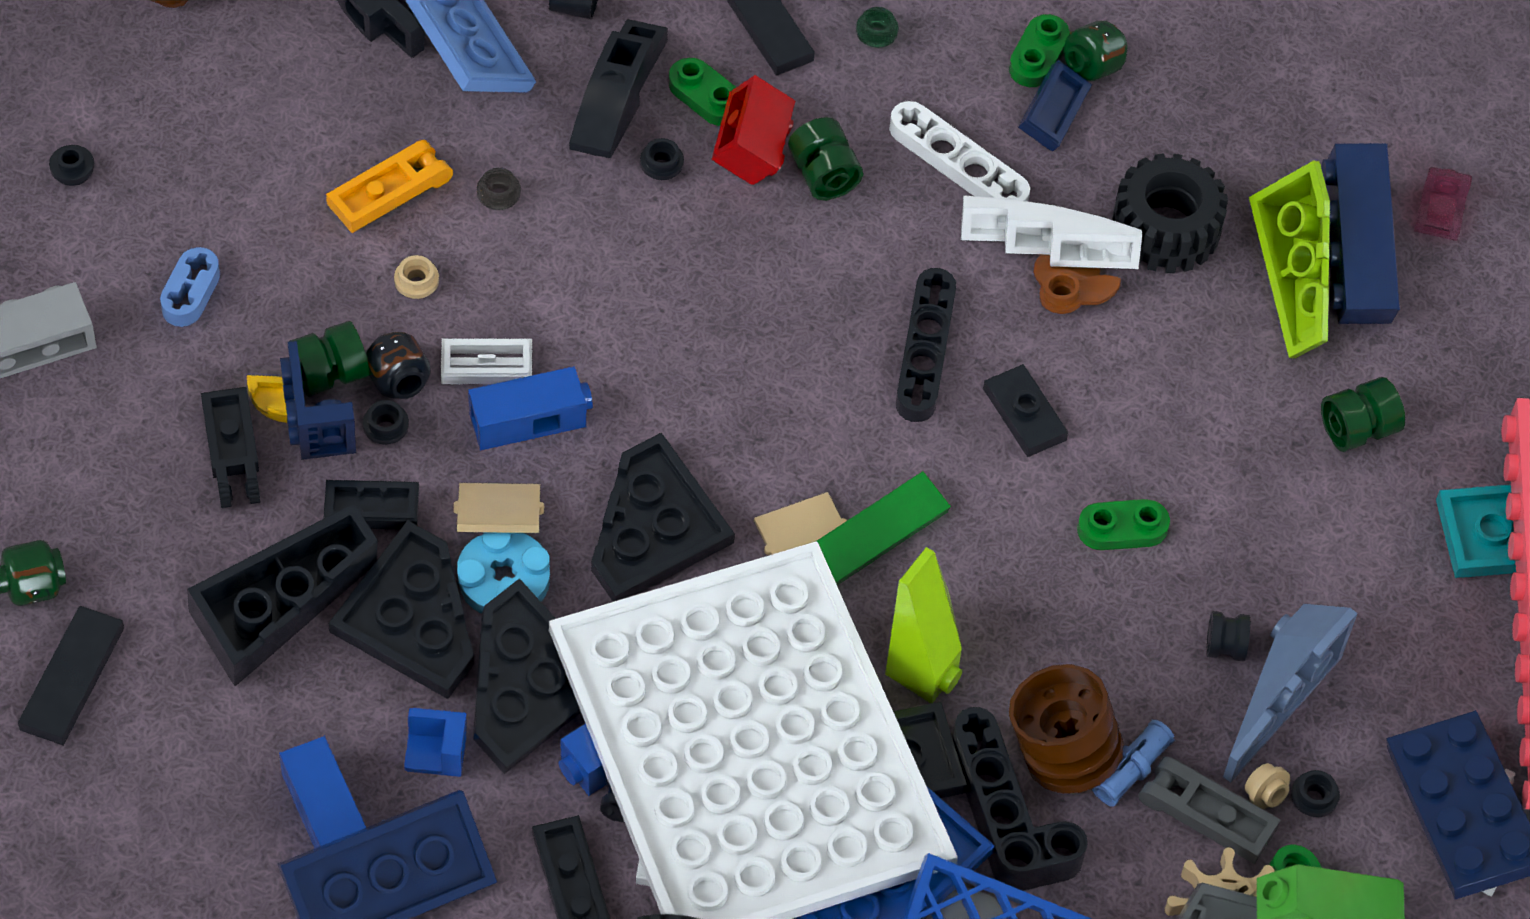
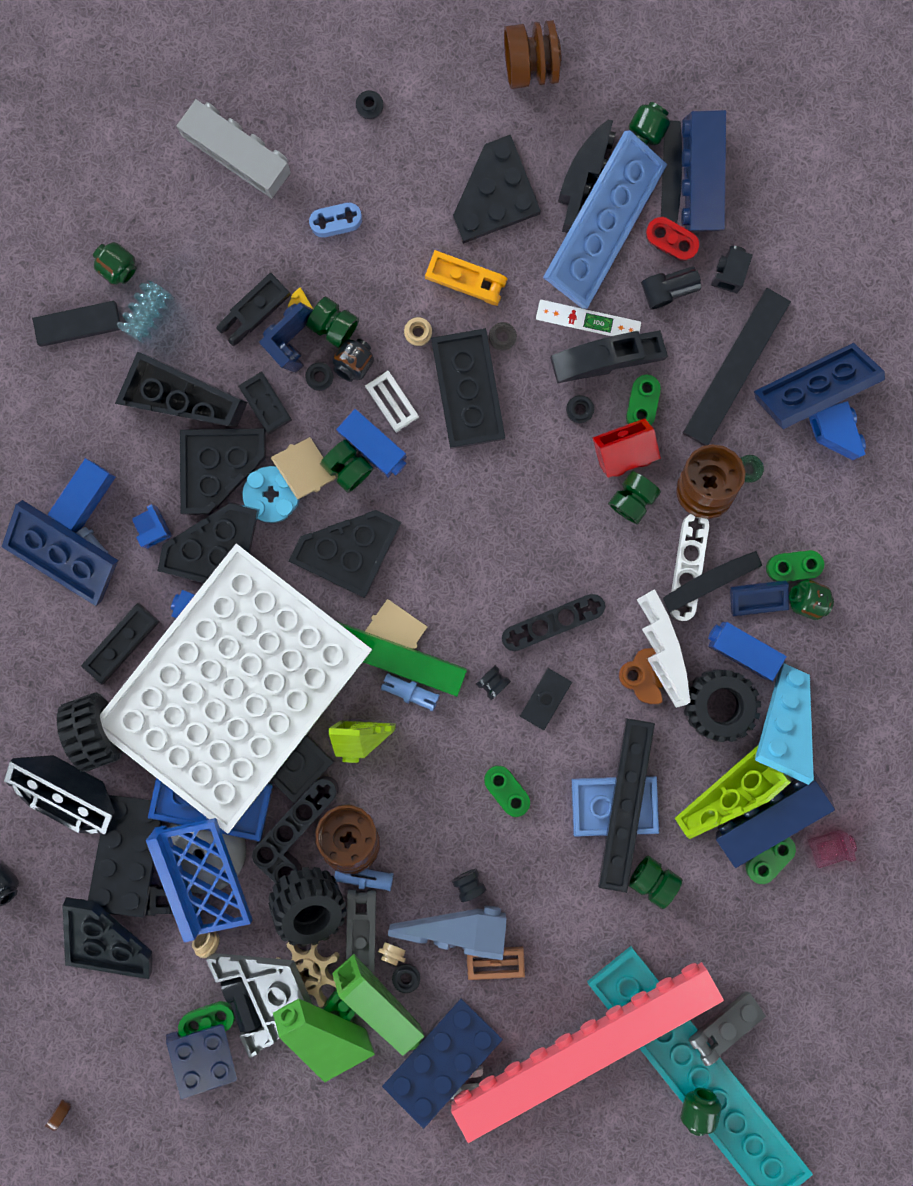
camera: 65 degrees right, 30 degrees up
(130, 571) = (145, 311): none -> clear light blue piece
(303, 96) = (495, 193): none -> black plate
(538, 263) = (468, 388): none -> black plate
(544, 97) = (585, 319): none -> white sticker
(553, 451) = (346, 466): none -> dark green wheel
(866, 61) = (713, 468): none -> reddish brown wheel
(902, 555) = (410, 692): none -> medium blue pin
(961, 451) = (493, 682): none -> black wheel
(995, 140) = (712, 580): none -> black sticker
(1106, 153) = (746, 650): none -> blue brick
(1129, 832) = (307, 906): none -> black tyre
(1227, 413) = (593, 804): none -> medium blue tile
(1235, 391) = (626, 805): none -> black tile
(1245, 145) = (788, 727): none -> medium azure wing
(1328, 824) = (377, 1005): none -> bright green slope
(1346, 702) = (494, 962): none -> nougat tile
(1417, 277) = (772, 860): none -> green plate

